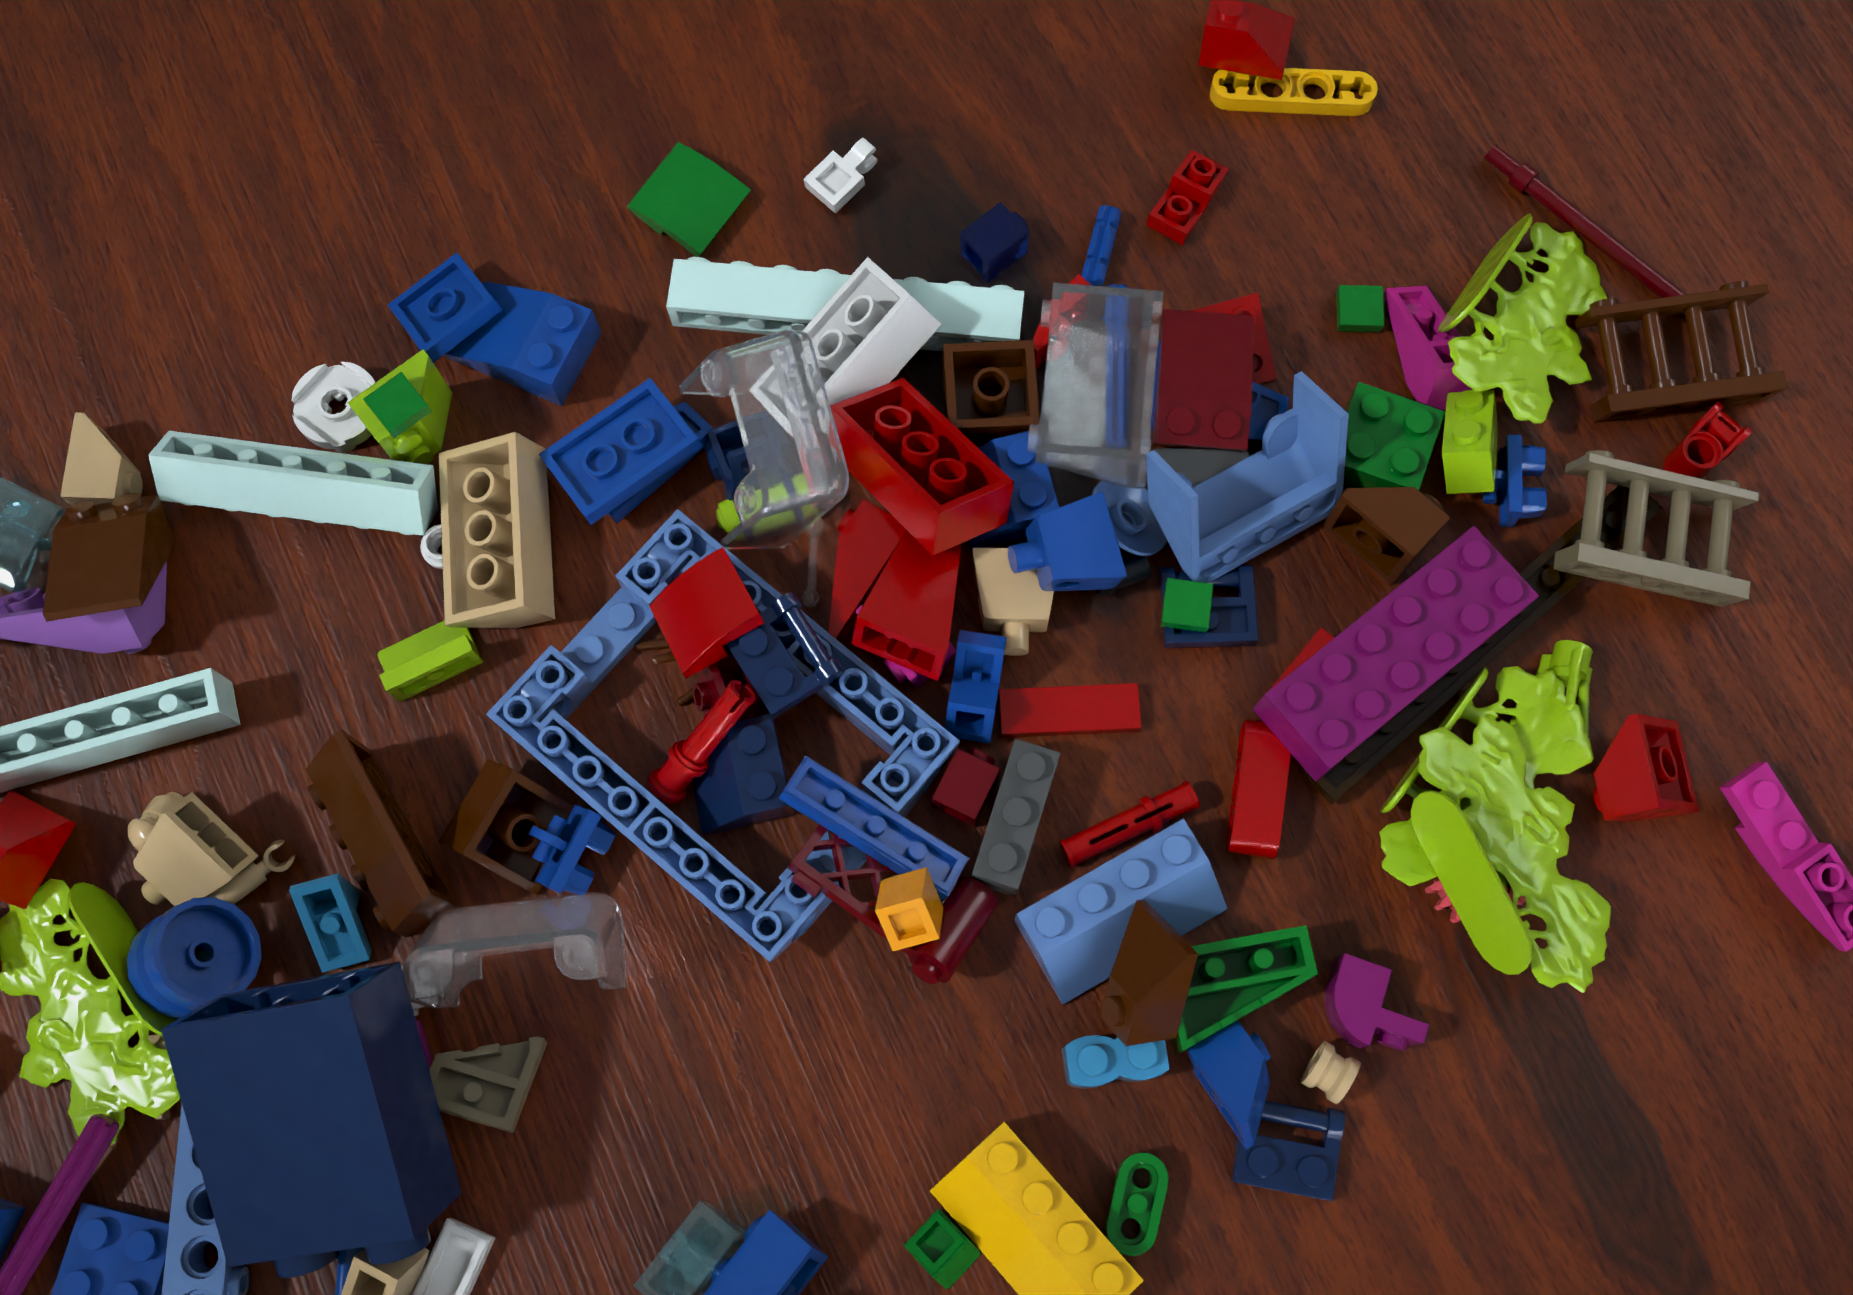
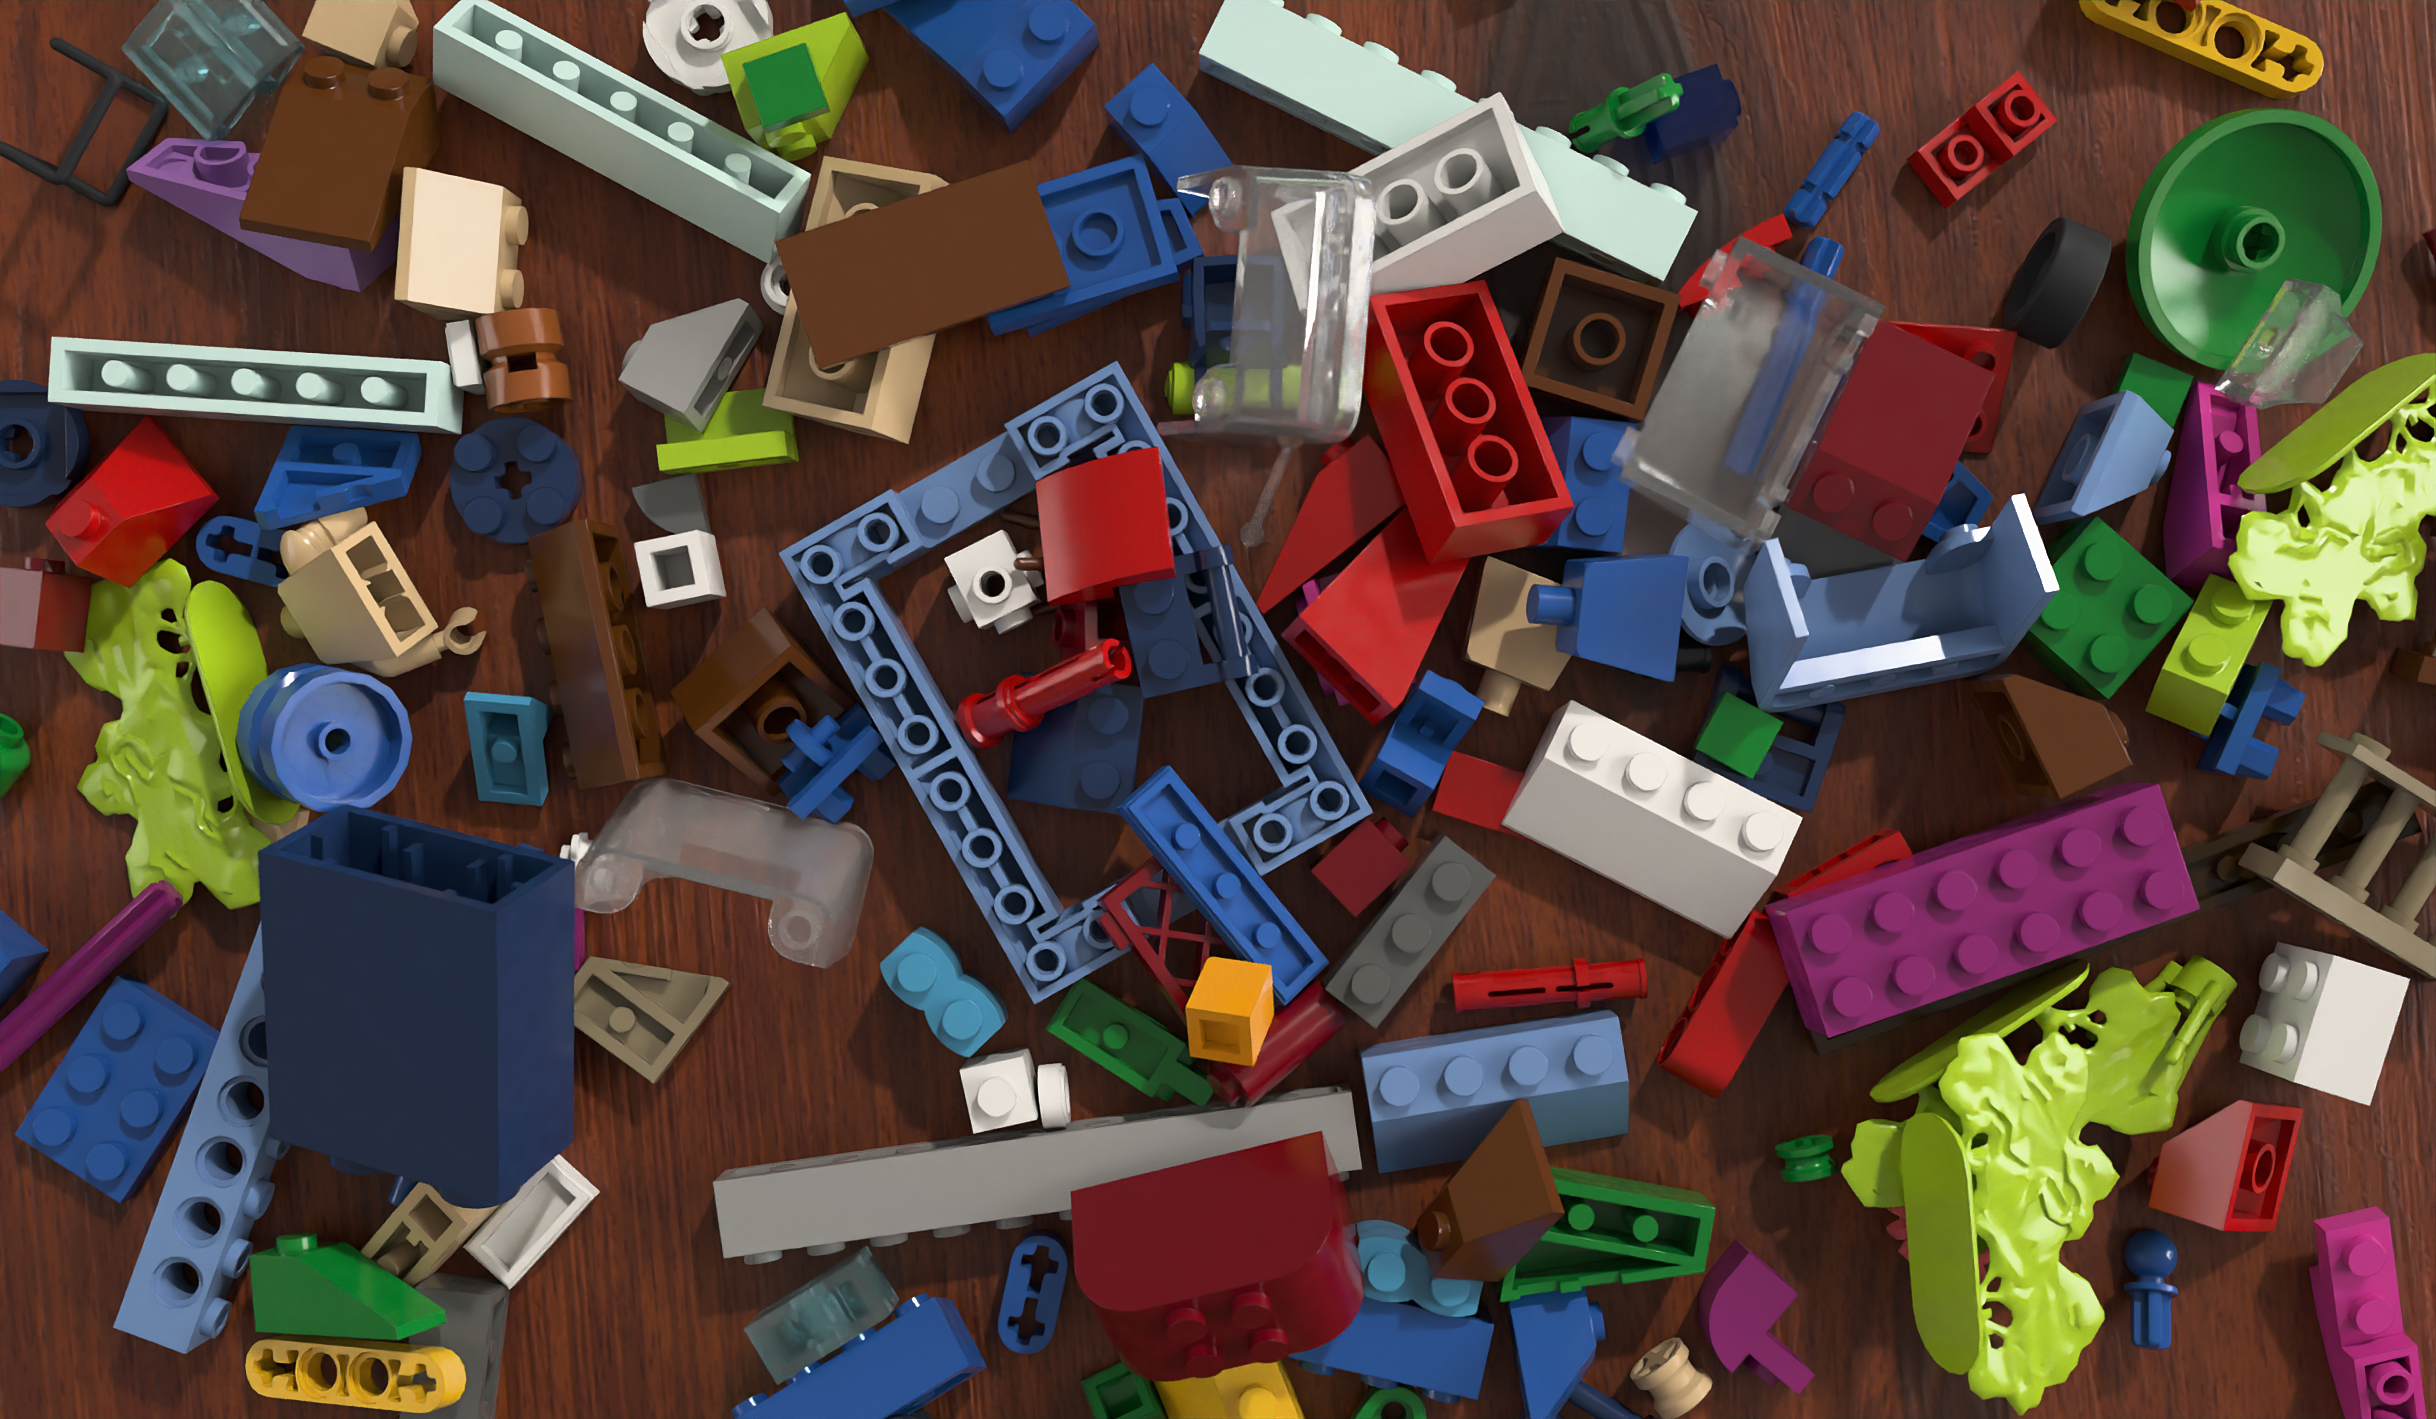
camera: 20 degrees right, 15 degrees up
(105, 869) = (253, 567): none -> blue beam
(155, 776) = (334, 472): none -> blue wing
(205, 596) = (458, 246): none -> slope
(233, 667) = (464, 357): none -> white tile
(263, 731) = (485, 458): none -> dark blue plate
(270, 654) = (523, 338): none -> dark orange wheel
(388, 615) = (691, 361): none -> light grey slope
(405, 718) = (674, 504): none -> dark grey tile
(420, 754) = (680, 570): none -> white brick
(524, 488) = (923, 265): none -> reddish brown tile
(644, 687) = (974, 570): none -> white brick
(663, 359) = (1168, 131): none -> blue slope
(712, 986) = (956, 1002): none -> dark azure brick
(767, 1039) = (1001, 1089): none -> white brick
(808, 1031) = (1054, 1096): none -> white tile
(810, 1093) = (1000, 1173): none -> light grey brick
(832, 1189) = (1019, 1288): none -> blue beam
(849, 974) = (1128, 1043): none -> green hinge
(955, 248) = (1626, 112): none -> green axle
(967, 1094) = (1220, 1259): none -> dark red brick
(1116, 1119) = (1409, 1347): none -> blue brick
(1152, 682) = (1650, 819): none -> white slope
(1269, 255) = (2057, 282): none -> black tyre
(1351, 346) = (2106, 457): none -> medium blue slope
(1357, 877) = (1806, 1158): none -> green bush
(1380, 191) = (2238, 216): none -> green dish
(1435, 241) = (2293, 350): none -> clear slope
(1626, 862) = (2150, 1258): none -> blue axle
(1658, 648) = (2323, 1021): none -> white brick

